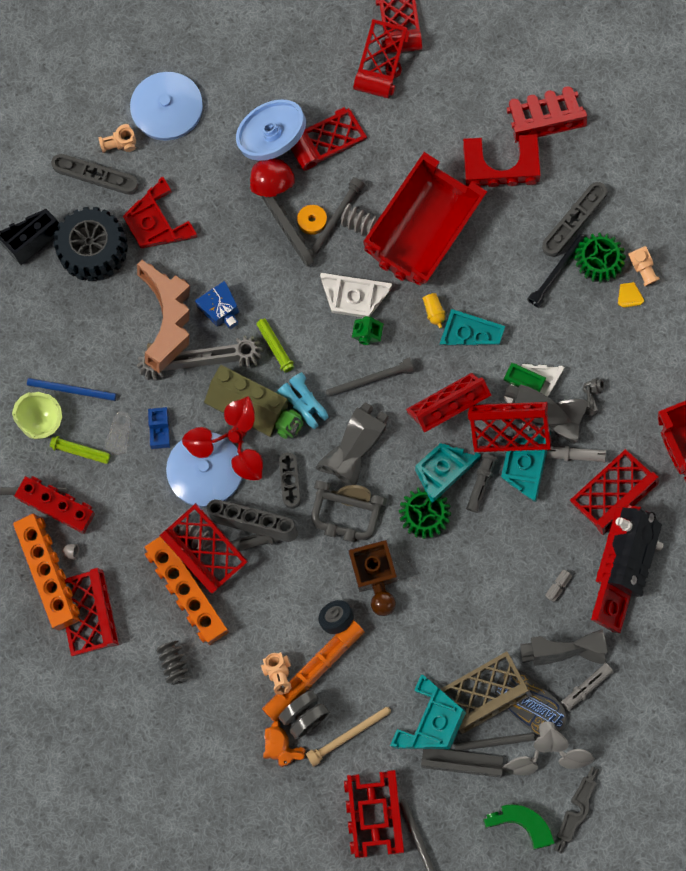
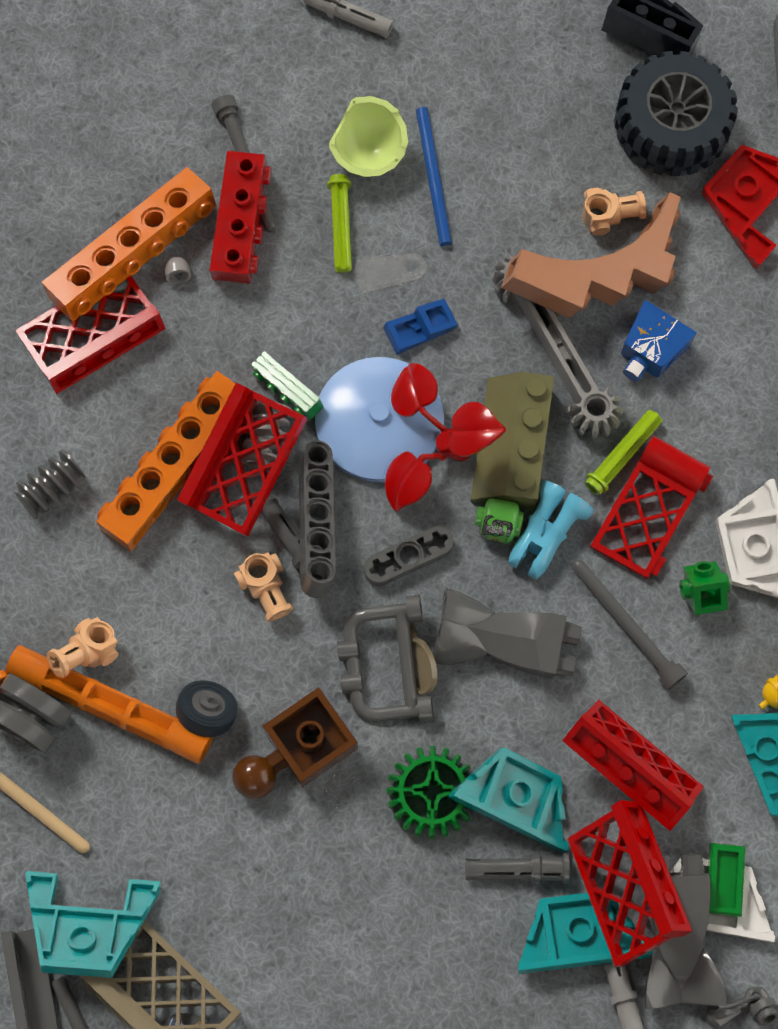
camera: 60 degrees right, 0 degrees up
(133, 298) = (613, 207): none -> light nougat connector
(166, 512) = (286, 385): none -> piece
(280, 563) = (265, 586): none -> light nougat connector
(298, 321) = (678, 474): none -> red piece

